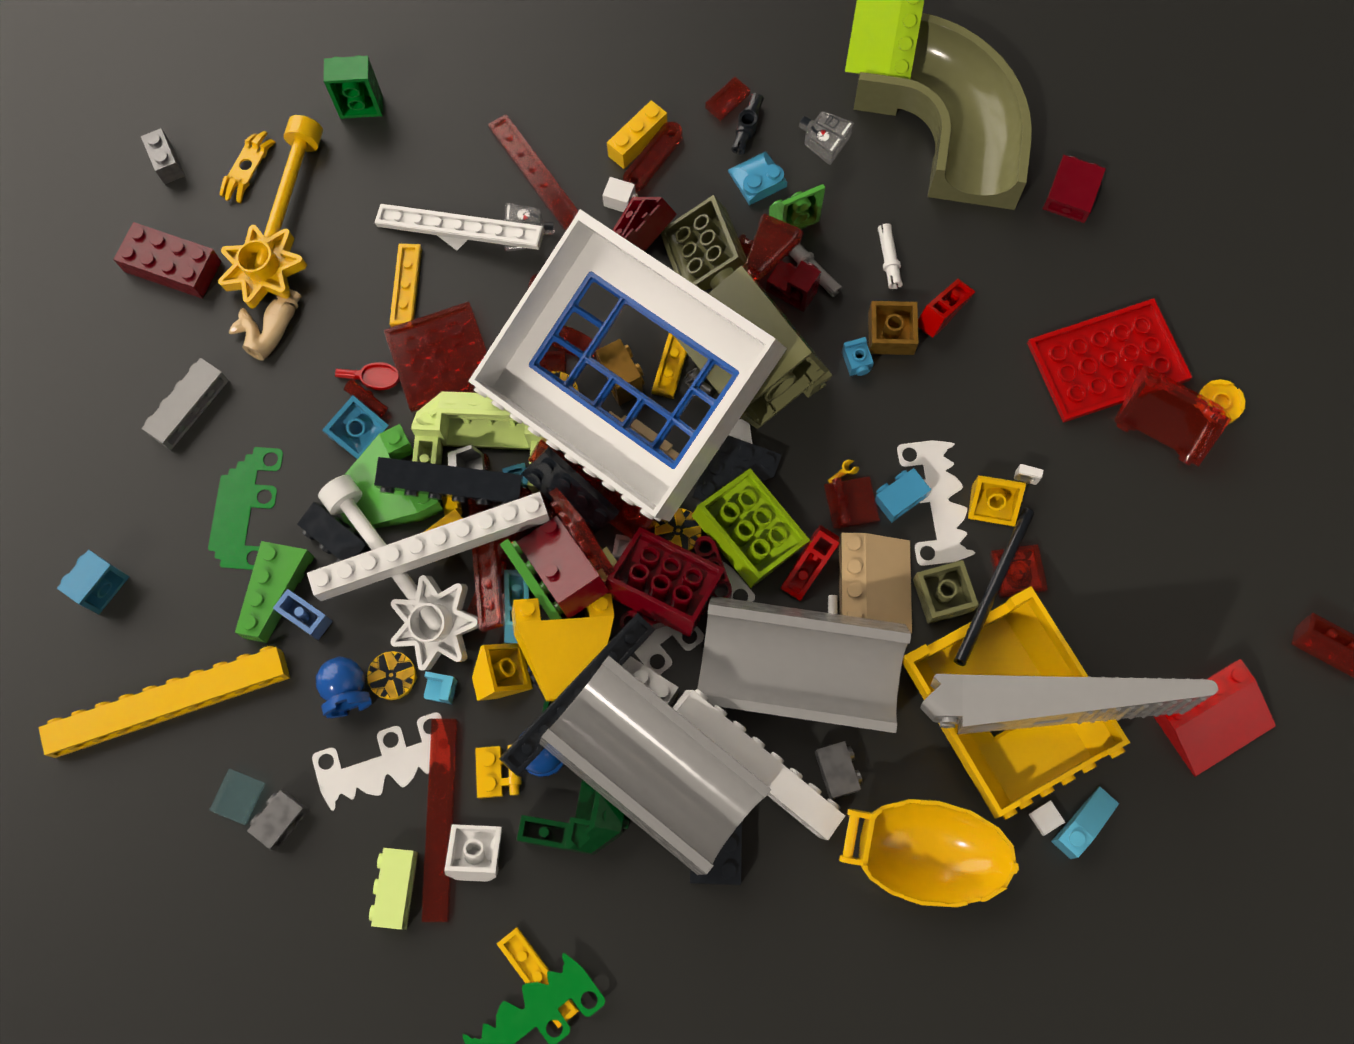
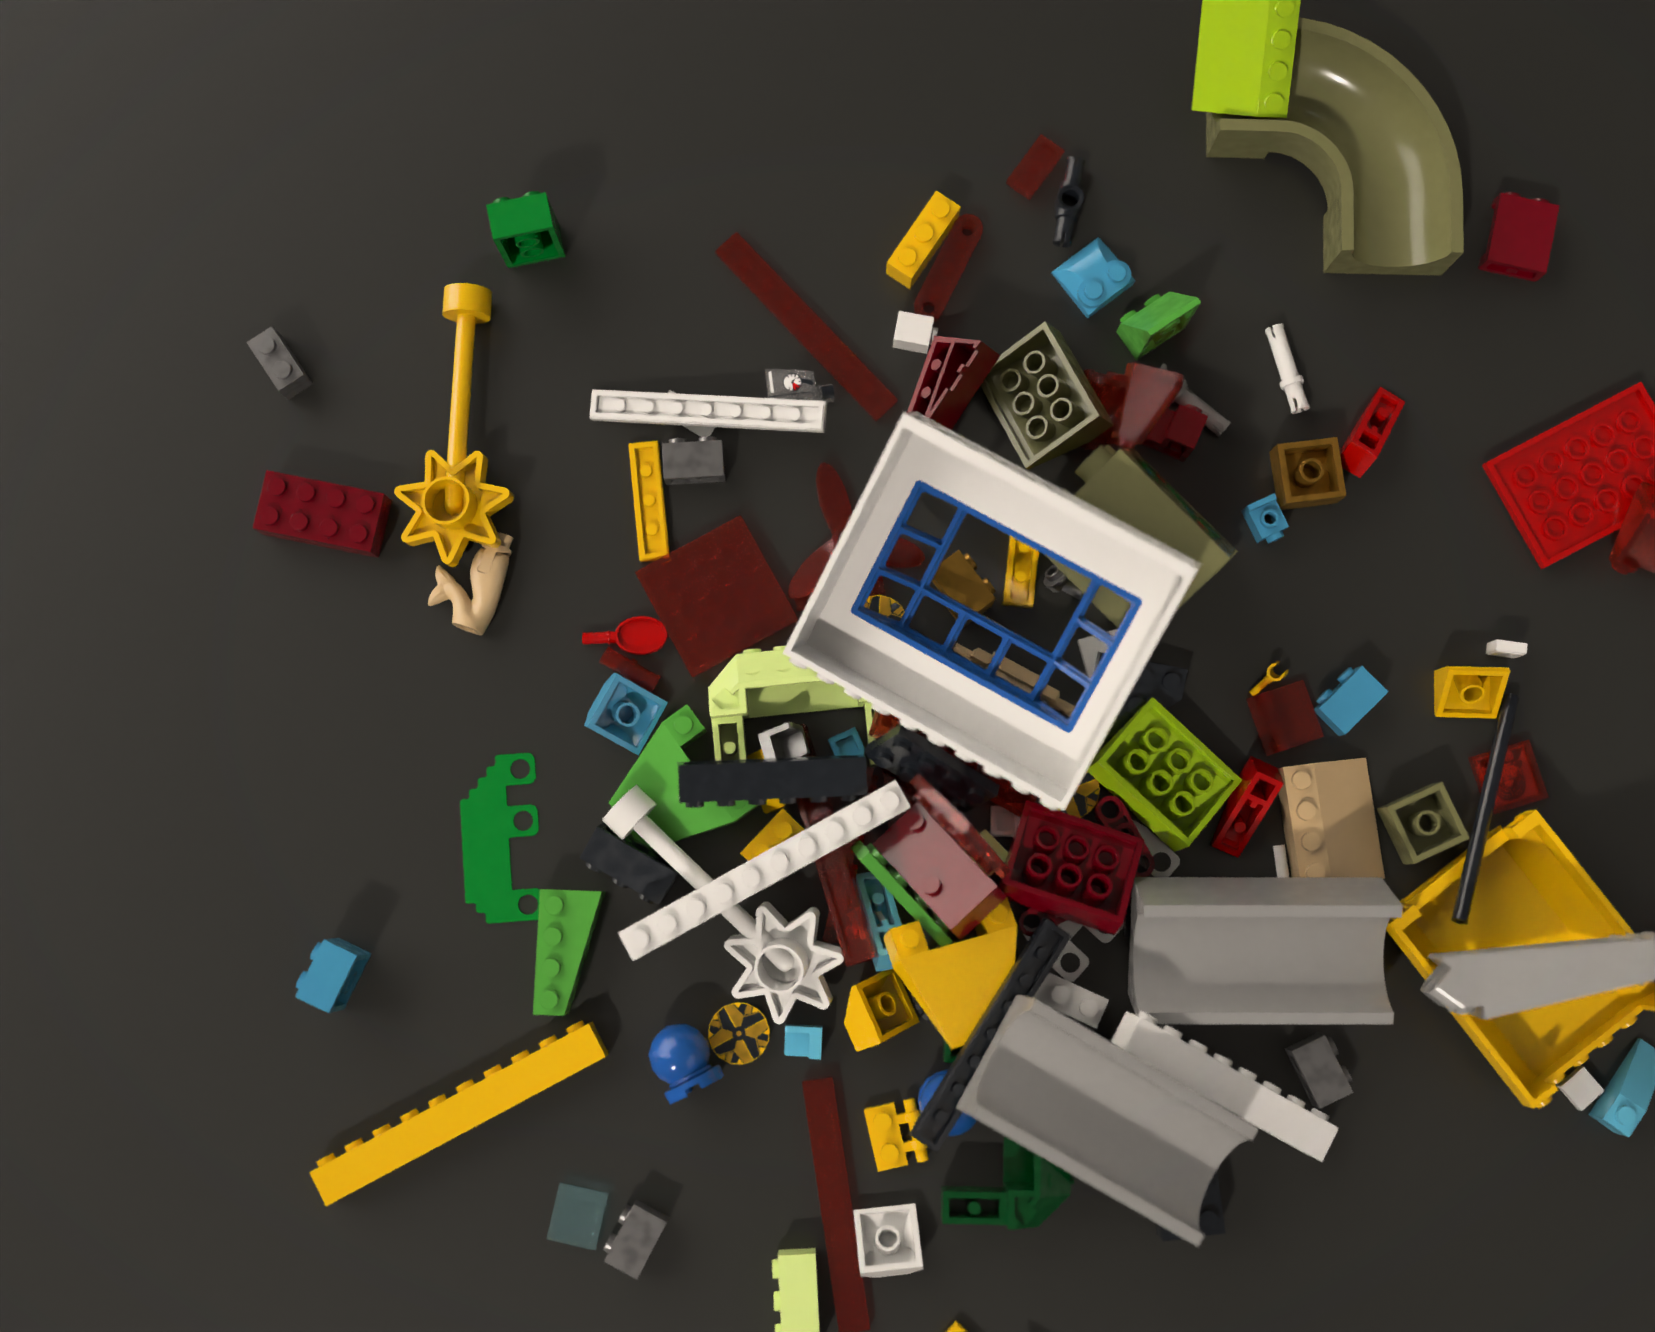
camera: 10 degrees left, 10 degrees up
(185, 403) = (392, 713): light grey brick -> none
(241, 177) = (395, 375): yellow piece -> none
(302, 614) = (612, 975): medium blue brick -> none
(369, 776) = (736, 1162): white piece -> none
(442, 261) = (693, 461): none -> flat silver brick
(826, 135) = (1177, 204): clear torso -> none
(931, 852) = (1452, 1163): yellow windscreen -> none
(945, 514) = (1405, 713): white piece -> none

